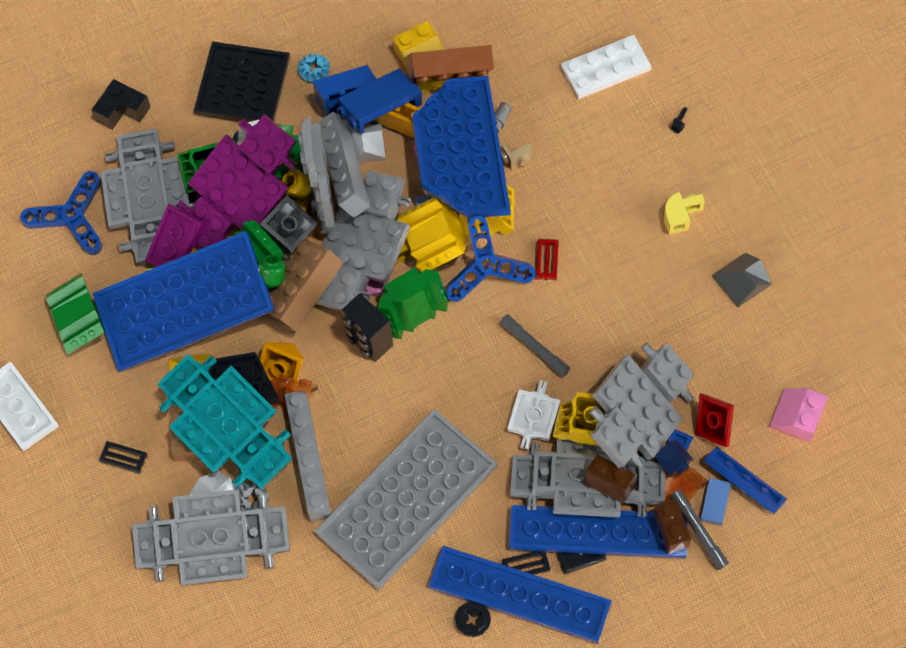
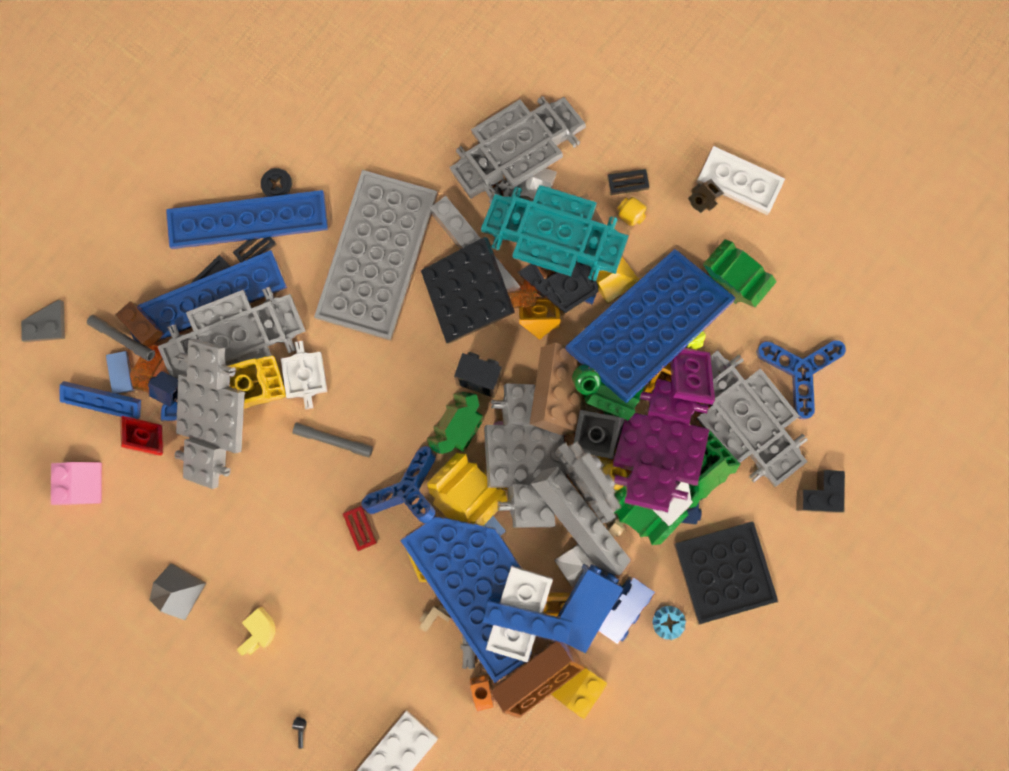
camera: 150 degrees right, 15 degrees up
(59, 402) = (705, 196): none -> dark brown brick
(137, 424) = (632, 211): none -> yellow head
(336, 413) = (467, 290): none -> black plate
(433, 98) = (527, 621): none -> blue plate
(436, 110) = (525, 591): none -> white plate
(504, 82) = (481, 692): none -> orange leg
(610, 479) = (207, 333): reddish brown brick -> none
(774, 584) = (44, 324): none -> dark grey wing

